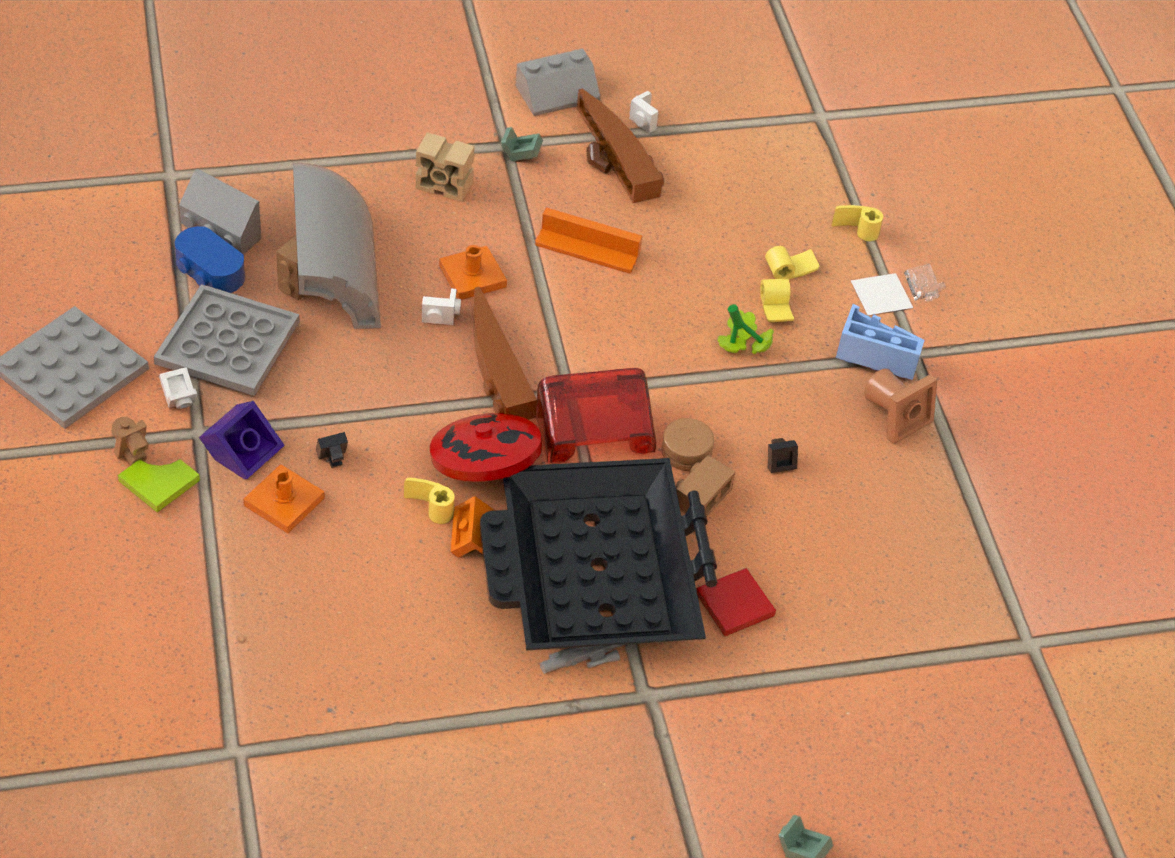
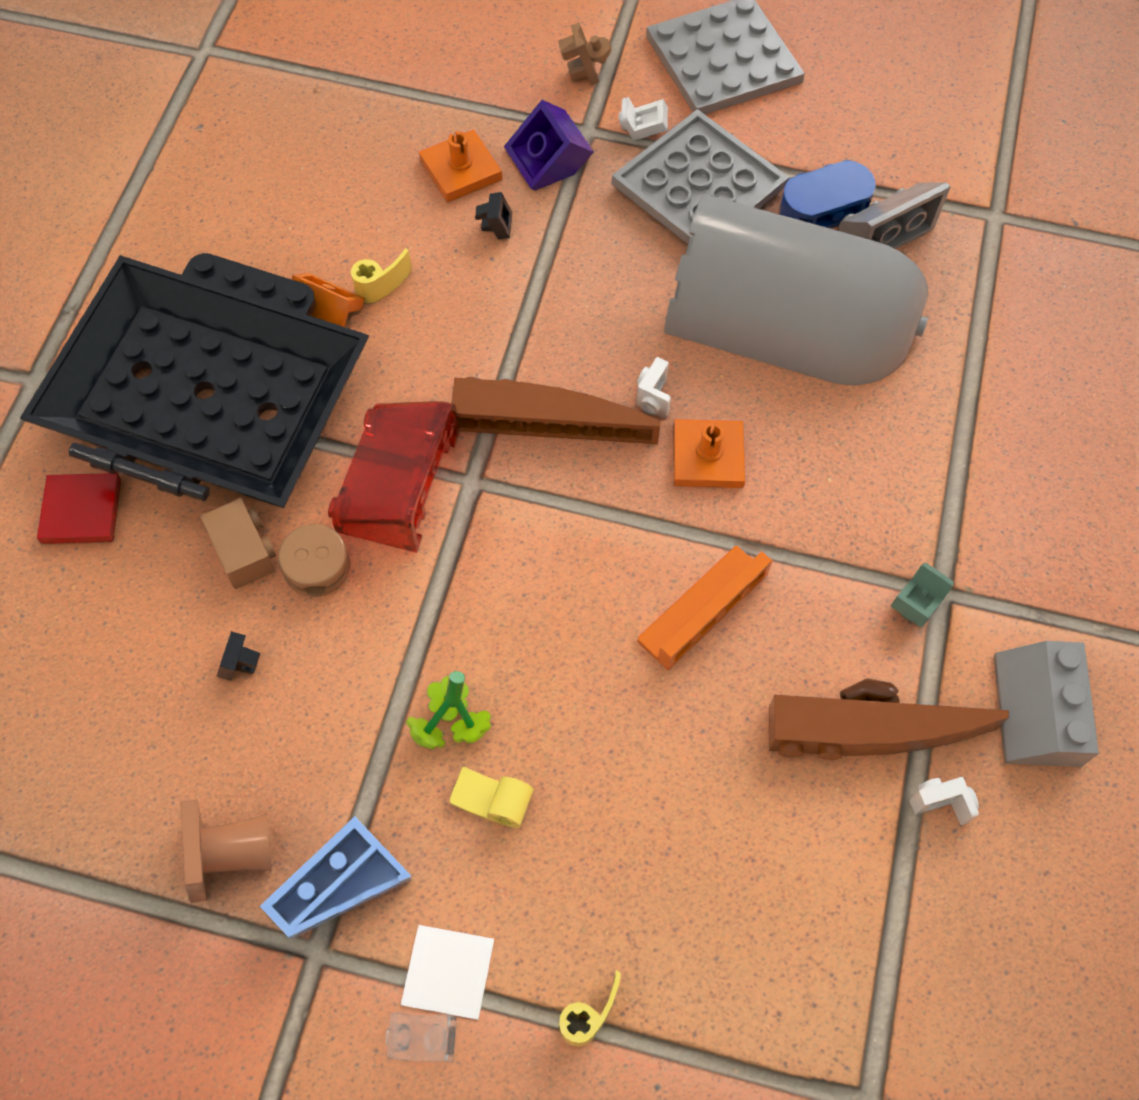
camera: 120 degrees right, 15 degrees up
(158, 484) = (534, 77): lime tile -> none
(444, 167) = (894, 471): tan brick -> none
(486, 447) = (410, 339): red dish -> none
(790, 267) = (555, 859): light yellow panel -> none

